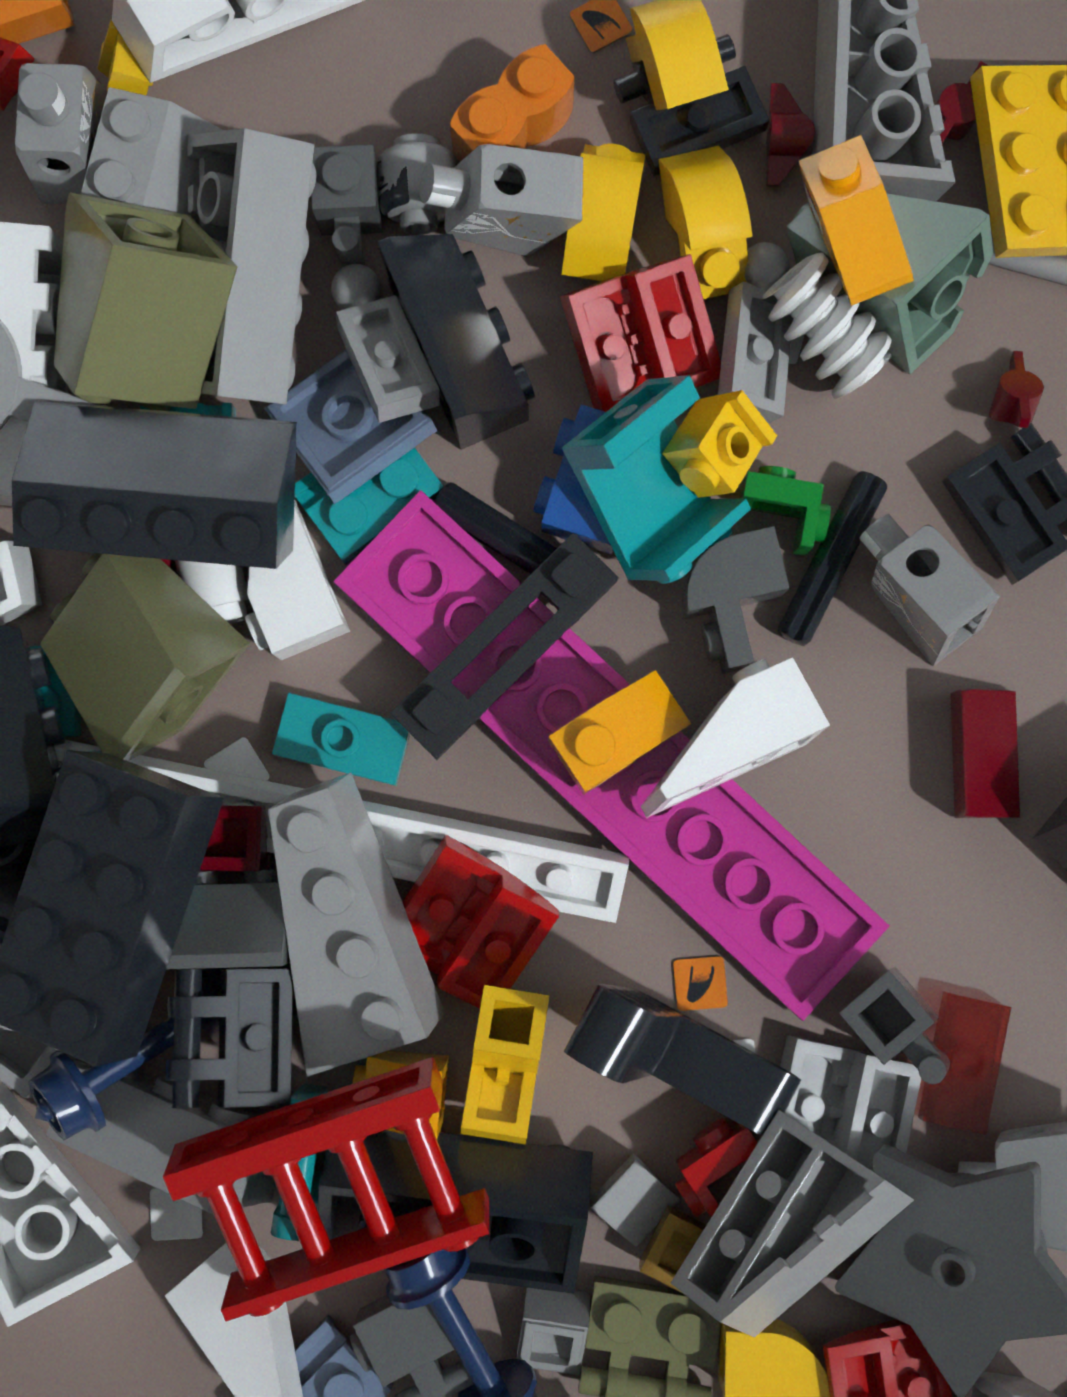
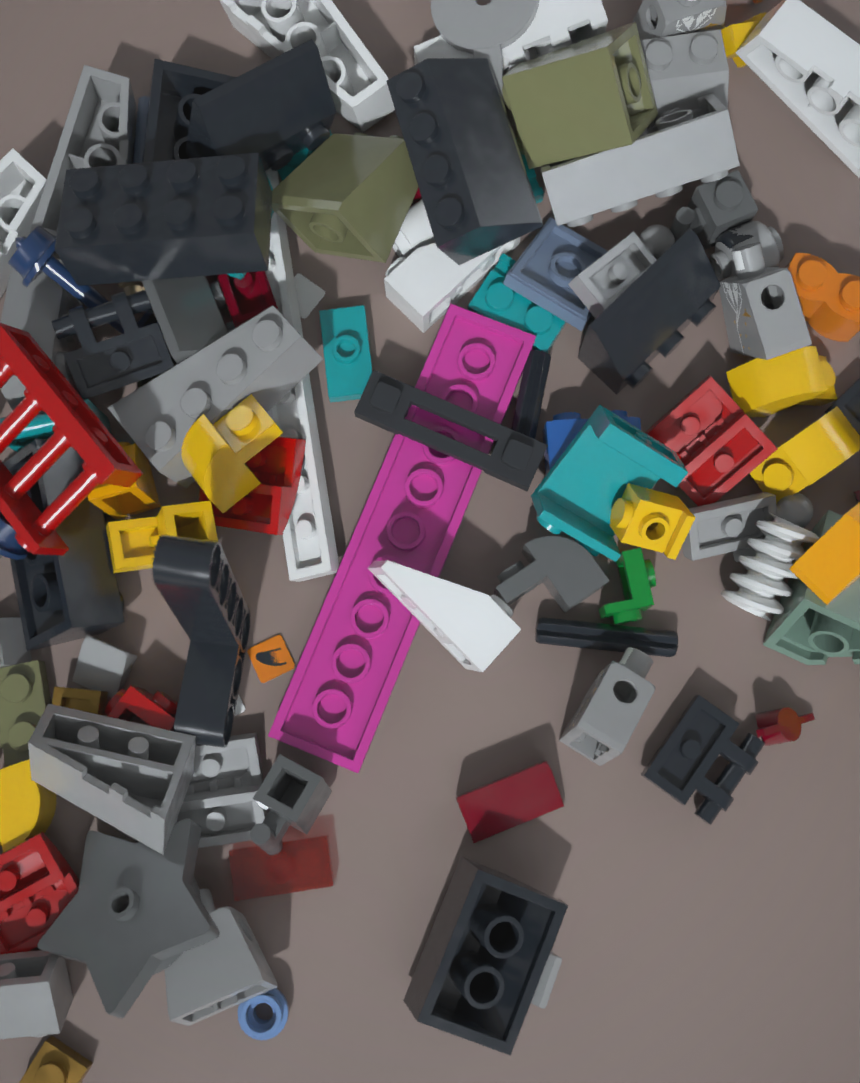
camera: 70 degrees right, 5 degrees down
(433, 946) = (219, 451): none -> yellow brick
(618, 731) = (419, 525): light orange slope -> none

